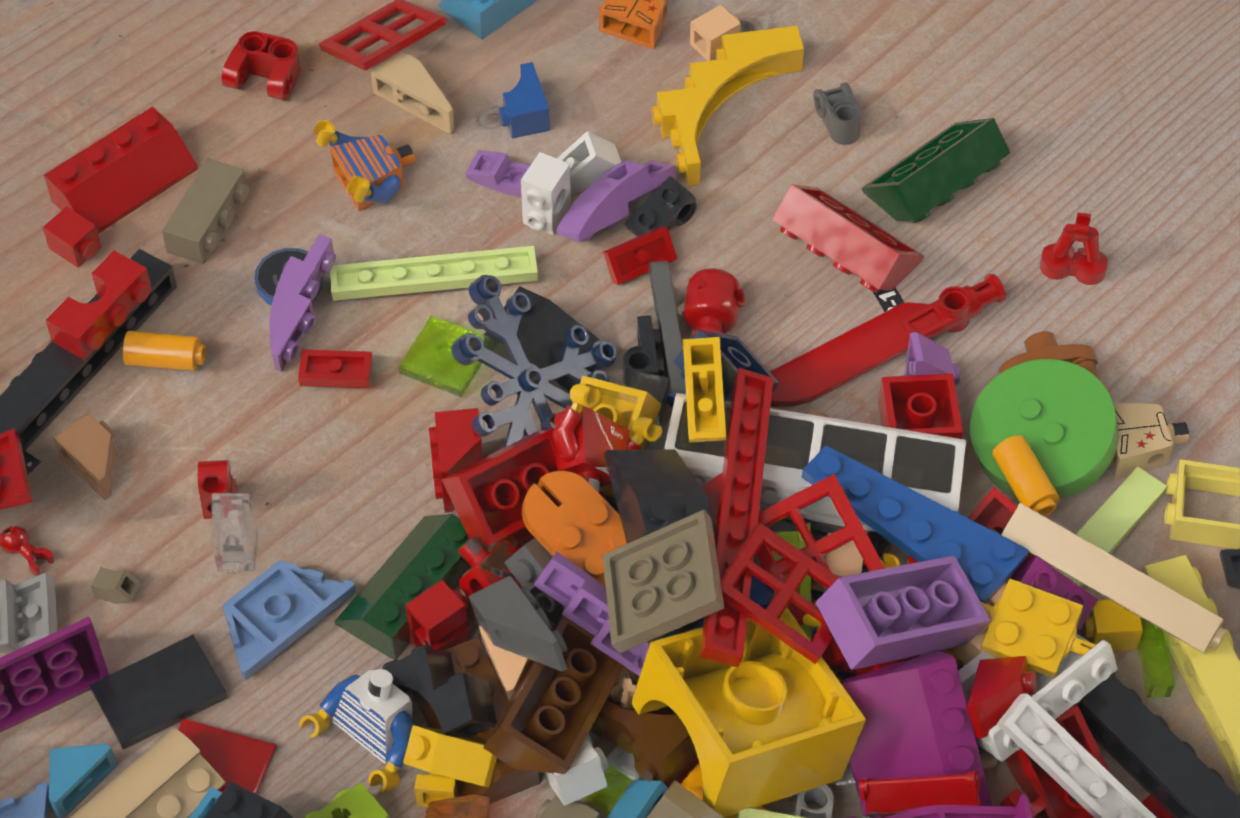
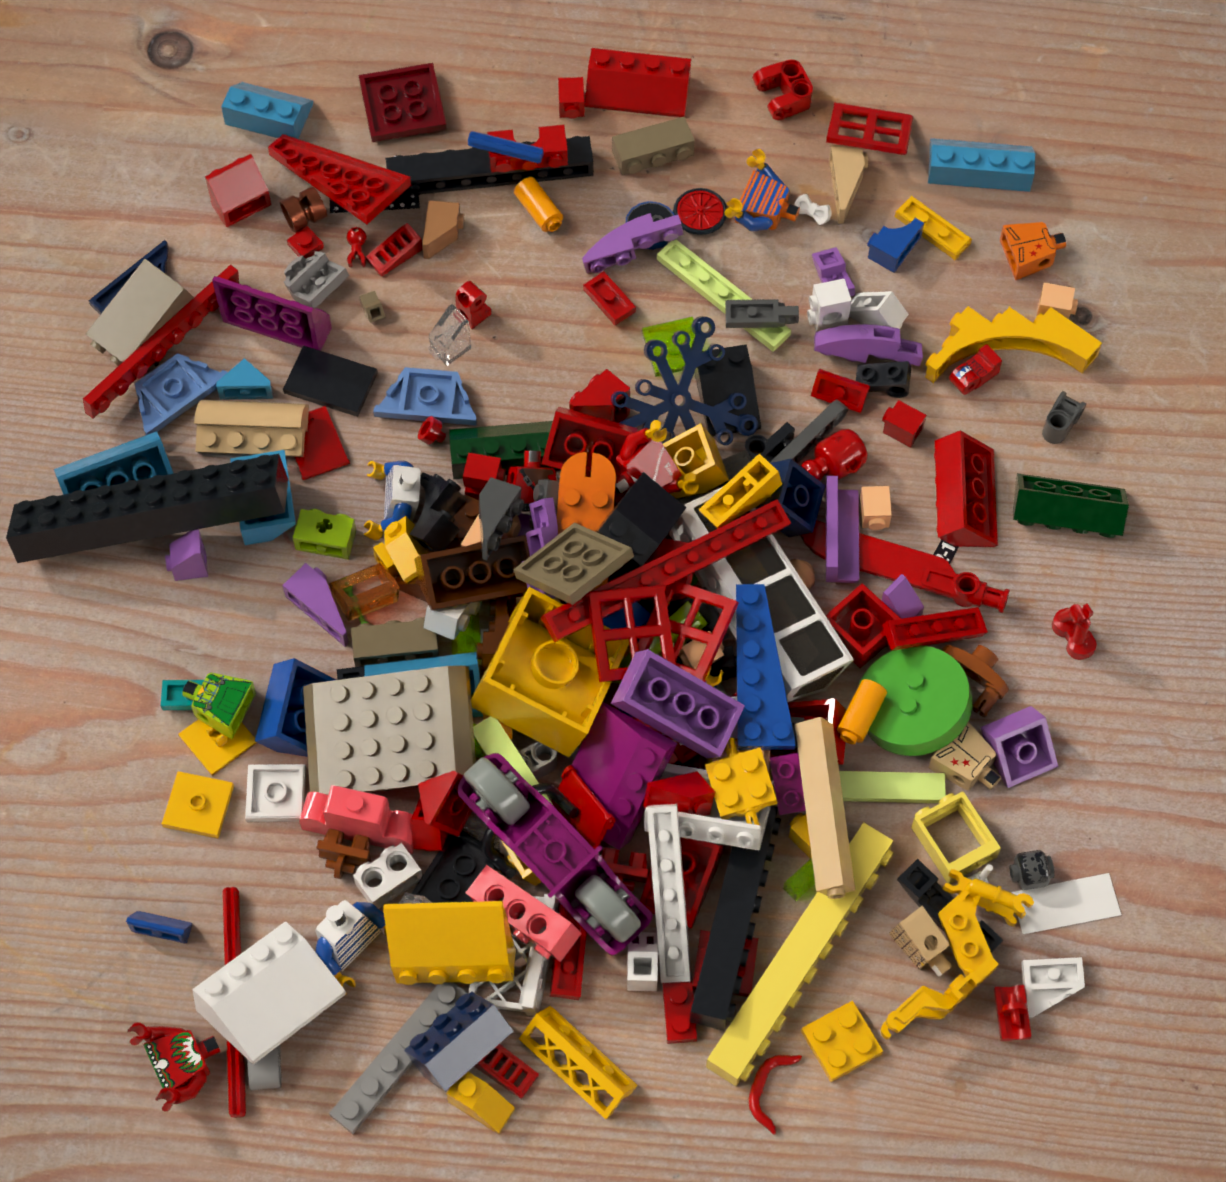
camera: 50 degrees right, 10 degrees up
(69, 493) = (397, 238): none -> red slope
(84, 314) = (505, 147): none -> blue axle
(315, 218) = (700, 211): none -> red wheel
(322, 636) = (431, 431): none -> red tile
(429, 136) = (819, 213): none -> white piece
(494, 251) = (759, 313): none -> dark grey hinge
(549, 66) = (935, 229): none -> yellow tile
(725, 137) = (976, 370): none -> red leg
(726, 231) = (903, 423): none -> red brick
(796, 317) = (875, 507): none -> light nougat brick
(800, 365) = (842, 533): none -> medium lavender panel
(981, 358) = (934, 628): none -> red plate
(1163, 376) = (1021, 746): none -> medium lavender slope

